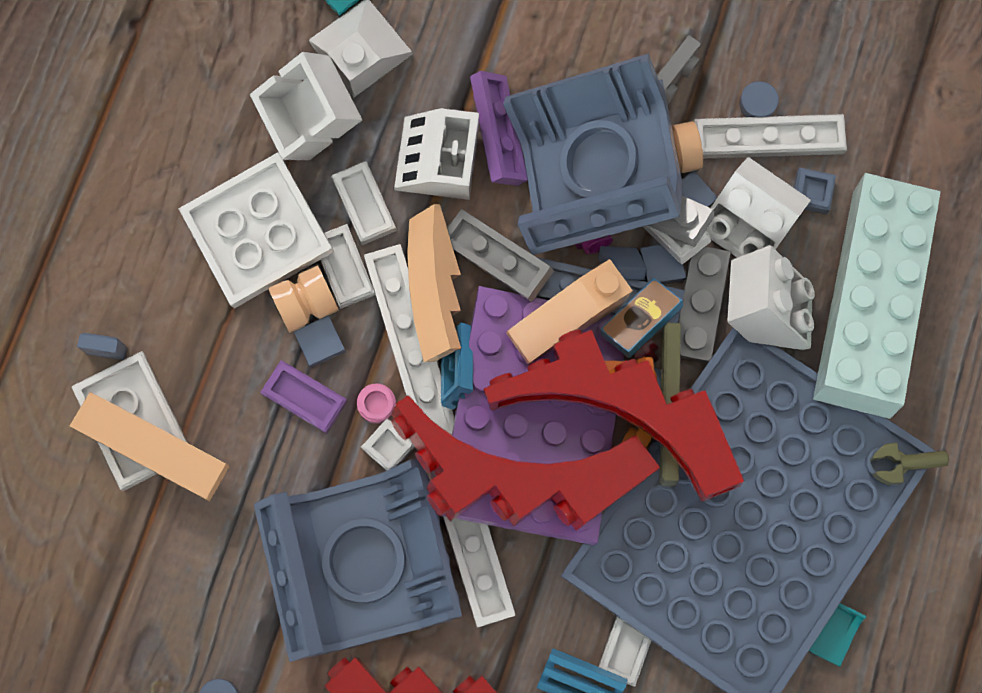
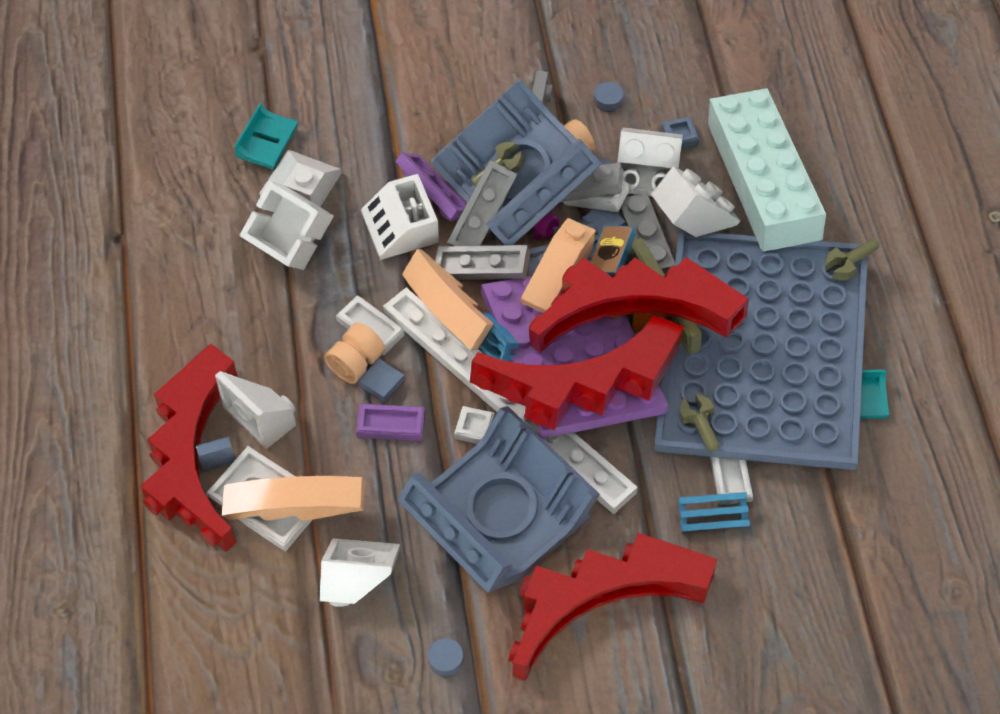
camera: 25 degrees left, 20 degrees down
(49, 363) = (185, 407): none -> red arch
(167, 320) = (256, 408): none -> white slope
(177, 555) = (354, 569): none -> white slope
(256, 230) = (291, 326): white plate -> none
(364, 203) = (362, 278): white tile -> none
(376, 403) = (448, 402): bright pink tile -> none
(532, 187) = (482, 206): none -> light grey plate
(578, 143) = (503, 151): none -> olive bar
(623, 578) = (700, 420): none -> olive bar
(772, 136) = (635, 111): white tile -> none

